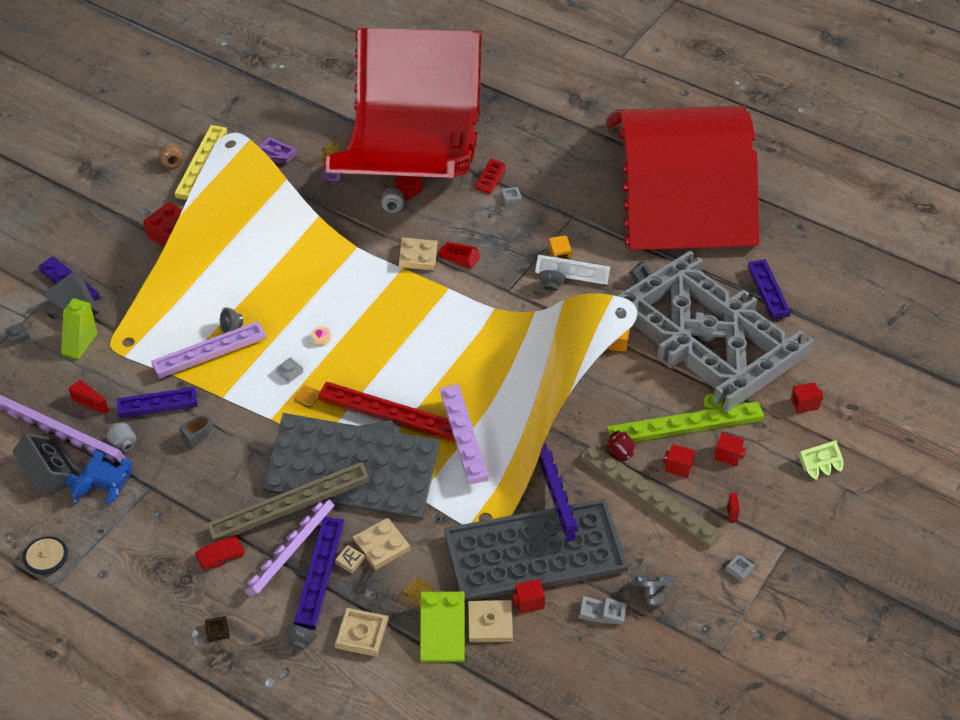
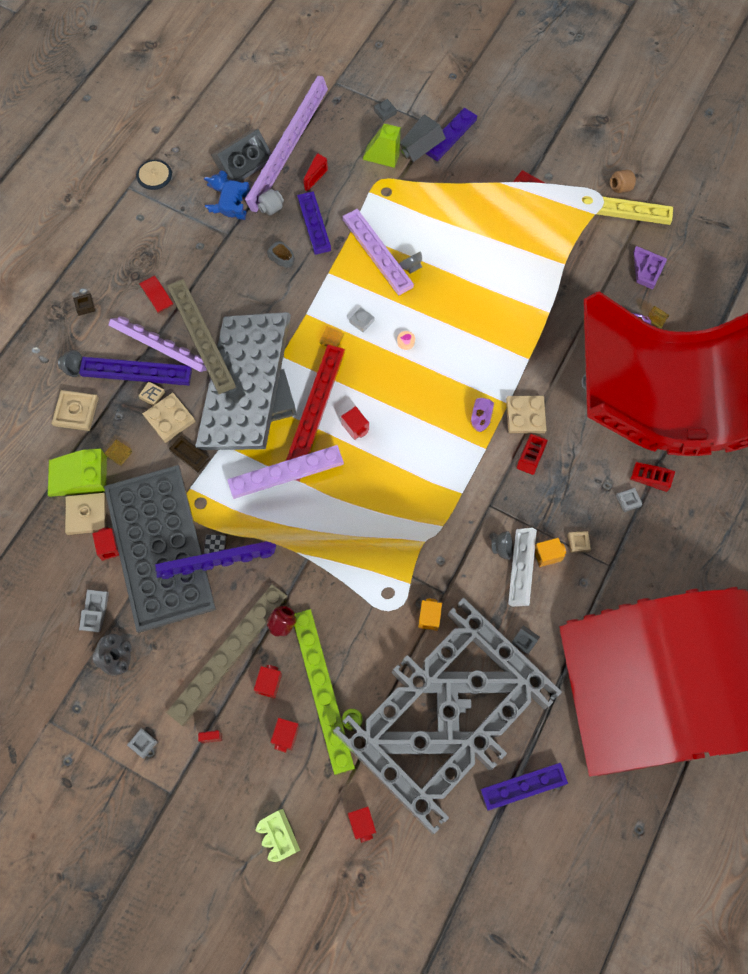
camera: 85 degrees right, 20 degrees up
(413, 378) = (355, 423): none -> red brick
(415, 283) = (482, 414): none -> medium lavender rock
(427, 525) = (189, 454): none -> dark brown tile
(534, 502) = (214, 543): none -> tile
(548, 231) = (579, 542): none -> tan tile

